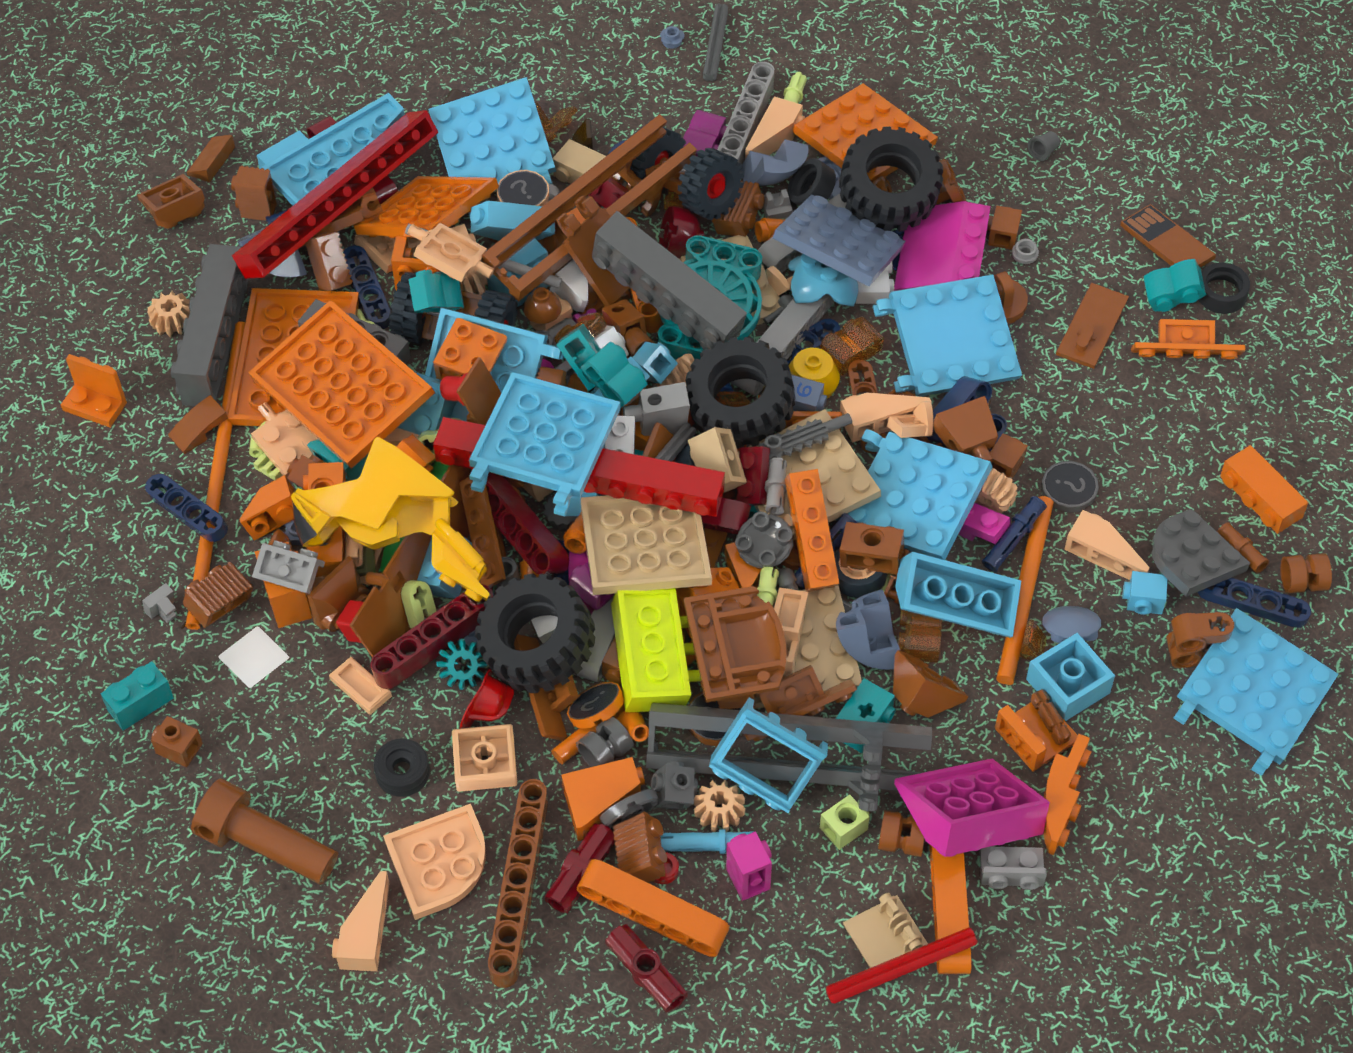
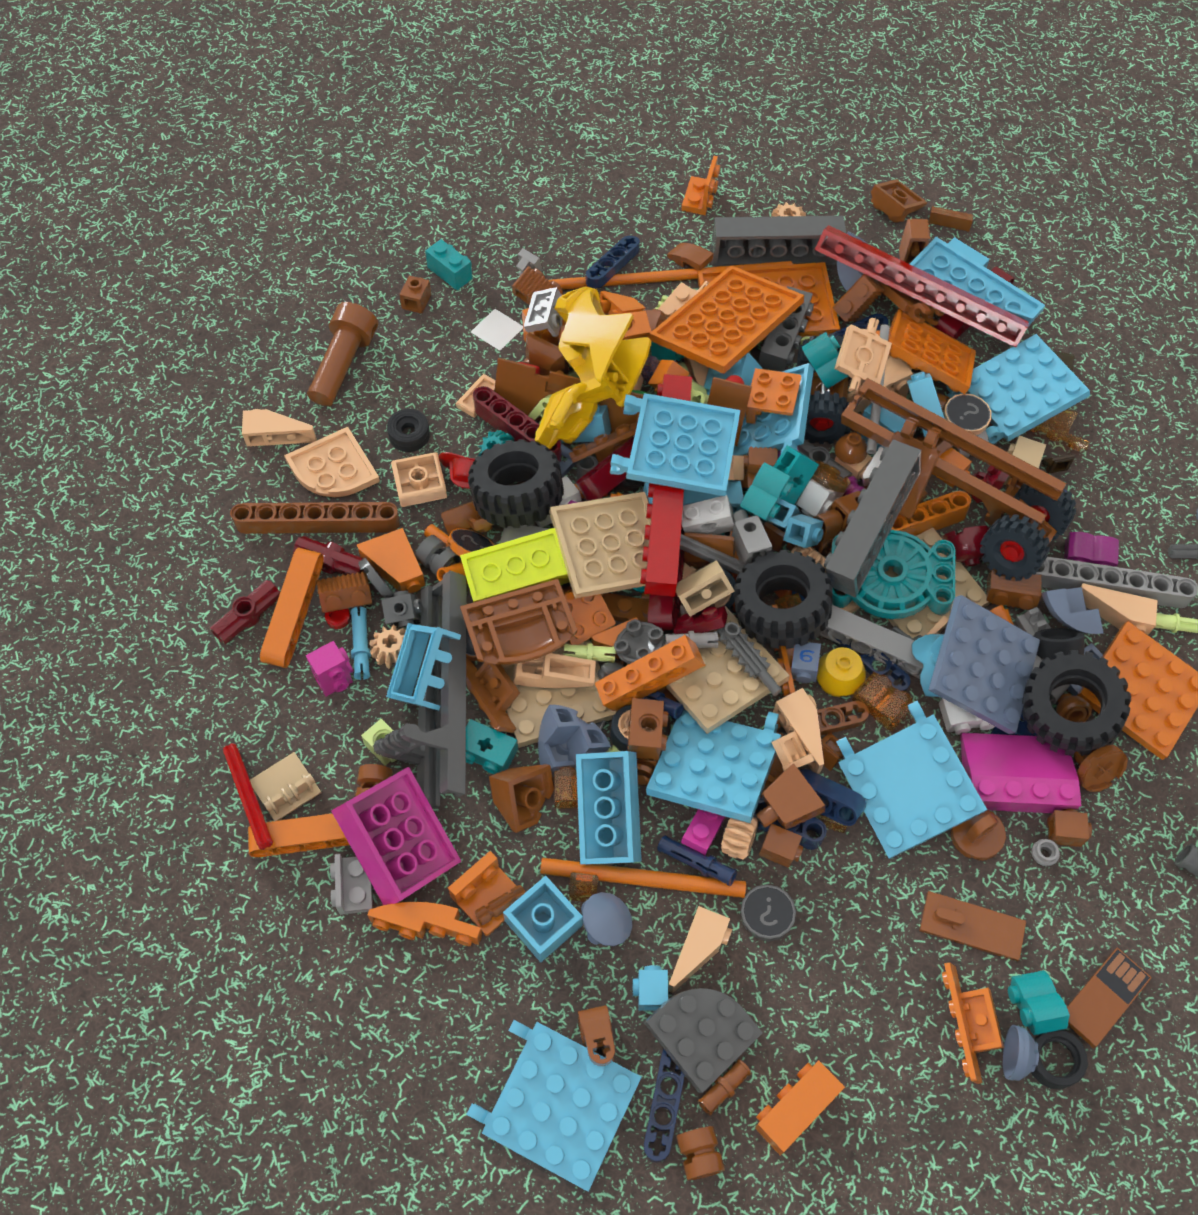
camera: 80 degrees right, 5 degrees up
(1226, 317) = (1019, 1053): none -> sand blue piece

